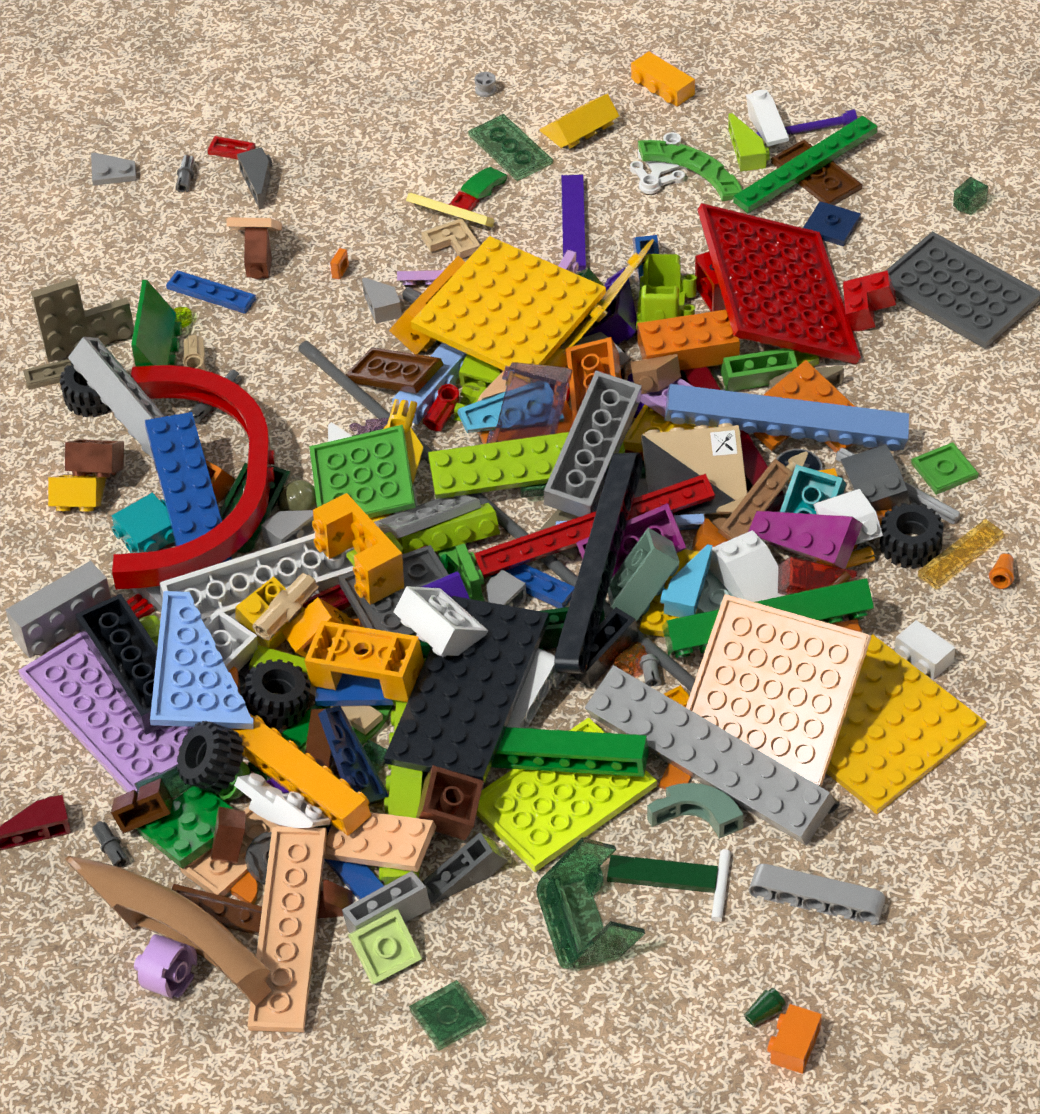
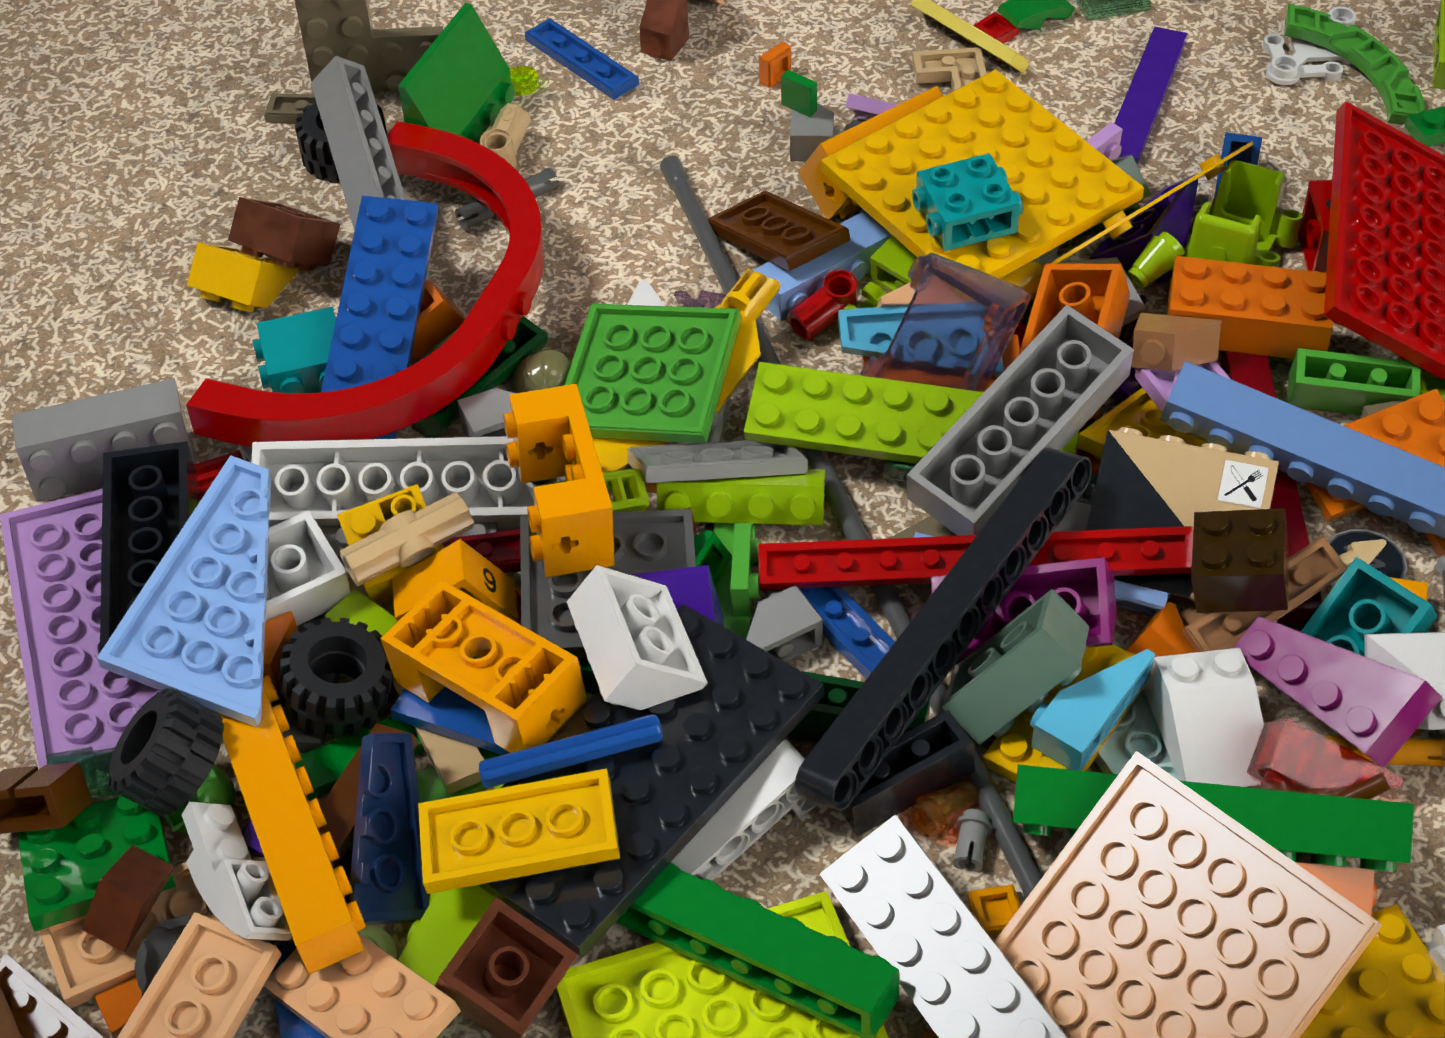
camera: 20 degrees right, 0 degrees up
(370, 280) = (799, 93): none -> green tile
(425, 732) = (517, 831): none -> yellow plate
(432, 686) = (570, 751): none -> blue axle
(511, 324) = (967, 202): none -> teal brick
(625, 327) = (1155, 259): none -> lime cone
(738, 484) = (1240, 561): none -> dark brown brick

